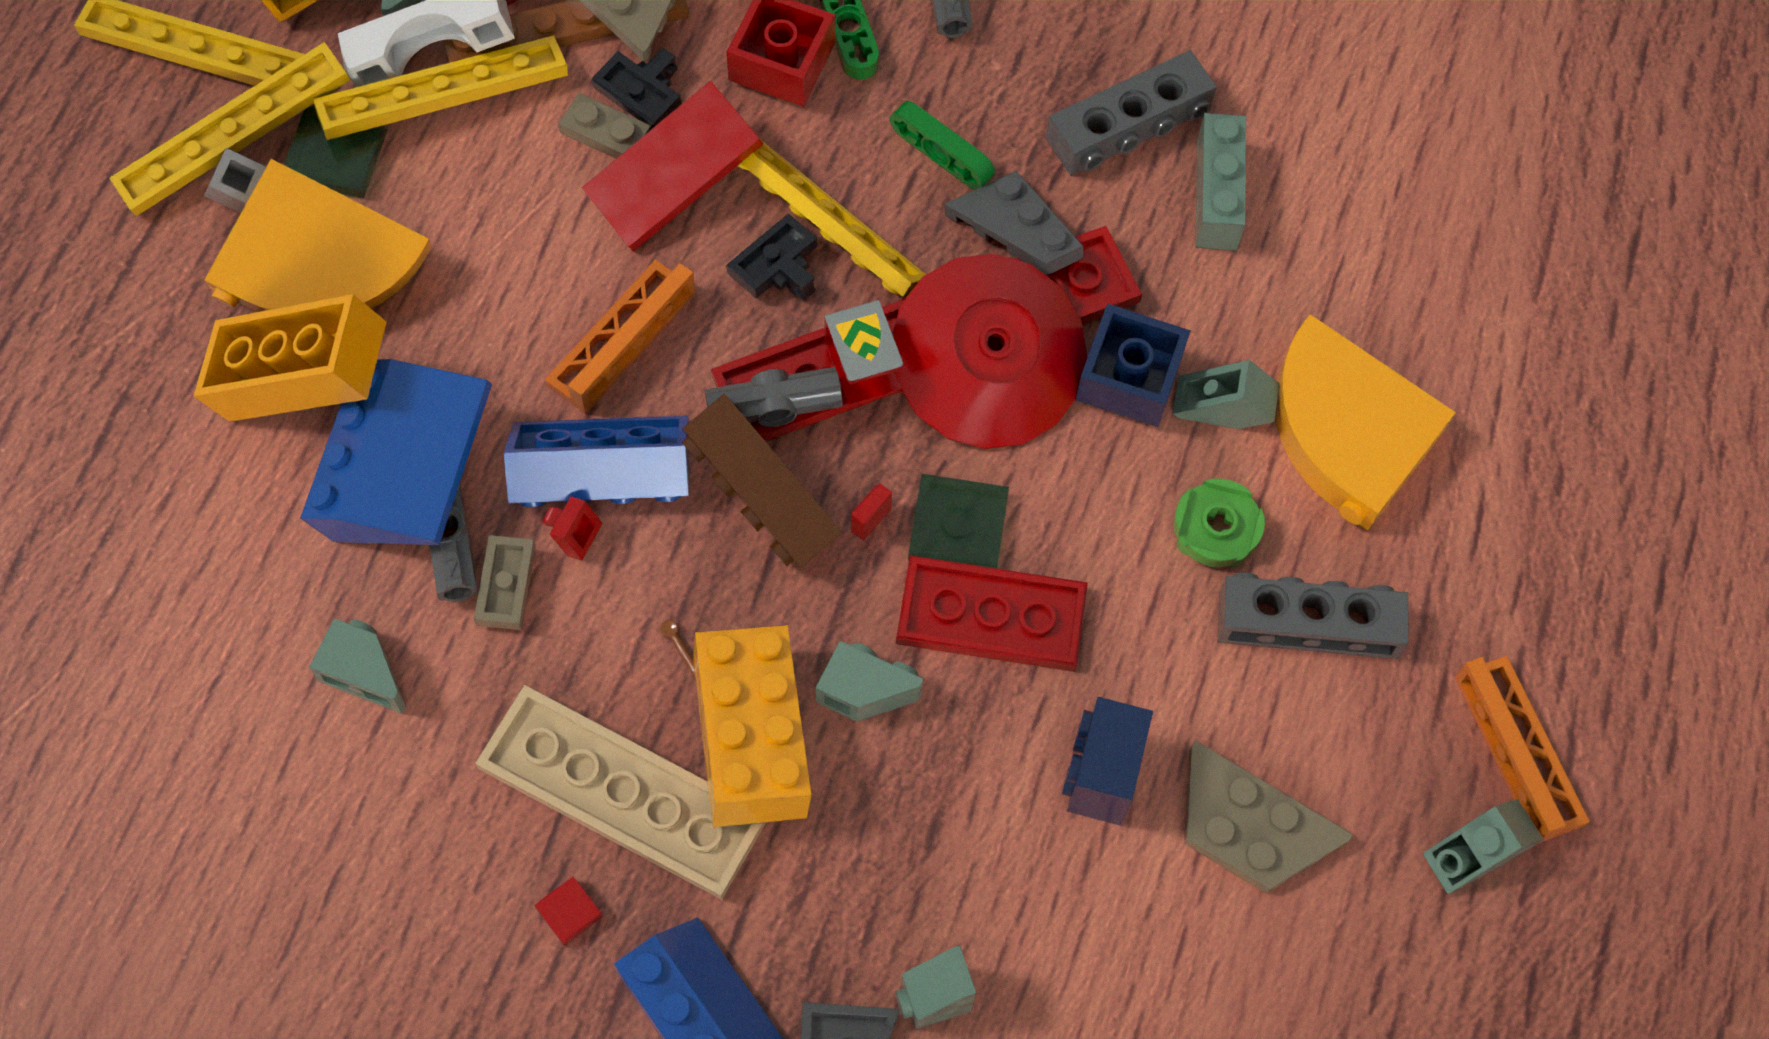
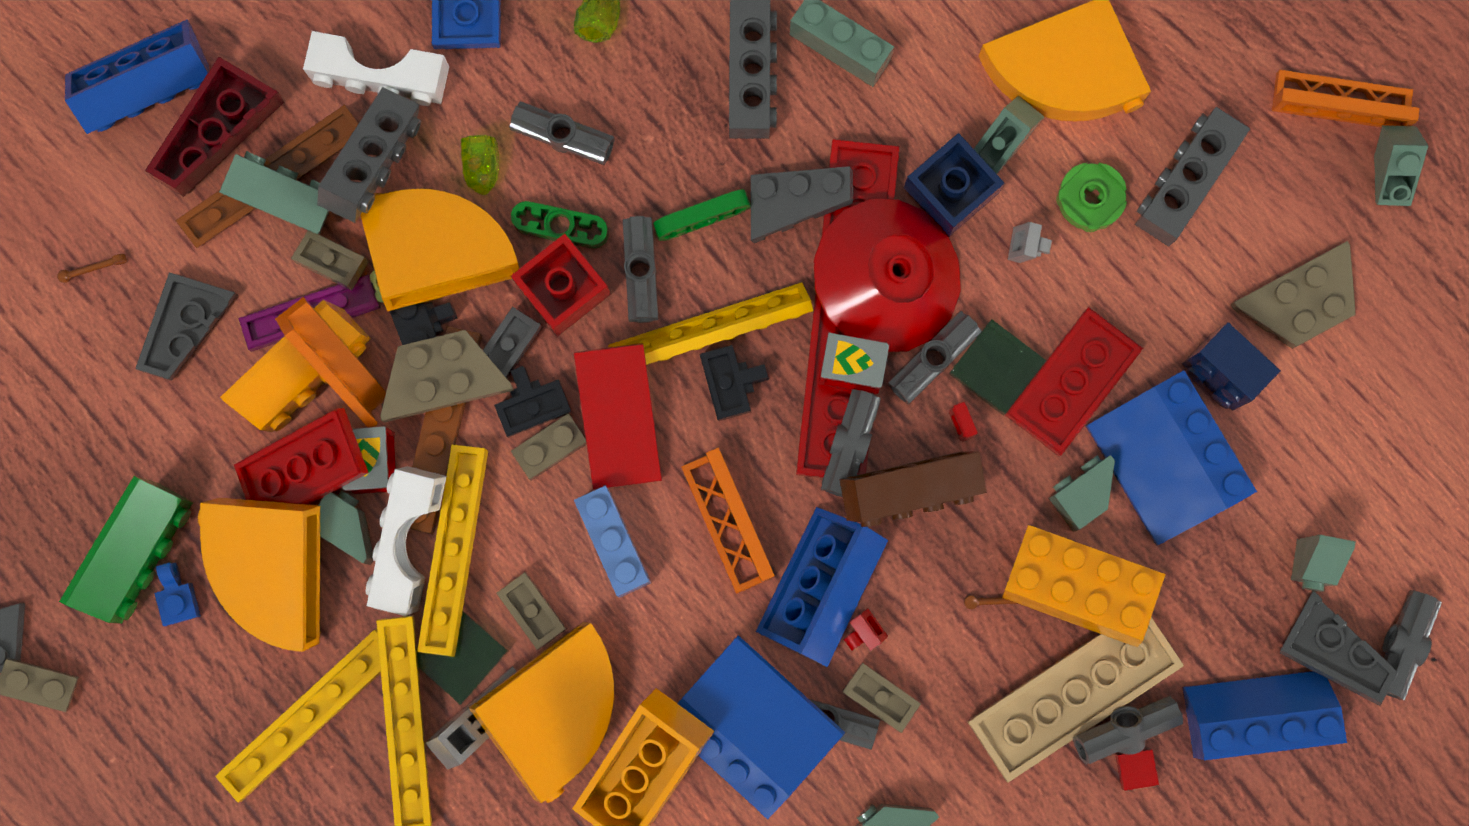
camera: 55 degrees left, 15 degrees up
(418, 190) = (531, 611): none -> dark tan plate
(532, 228) = (612, 541): none -> medium blue brick
(607, 867) = (1128, 730): none -> dark grey piece
(695, 37) = (511, 340): none -> dark grey plate
(826, 125) = (640, 249): none -> dark grey piece
(953, 451) = (949, 342): none -> dark grey piece
(963, 760) = (1171, 458): none -> blue slope
(1119, 481) = (1027, 243): none -> light grey tile

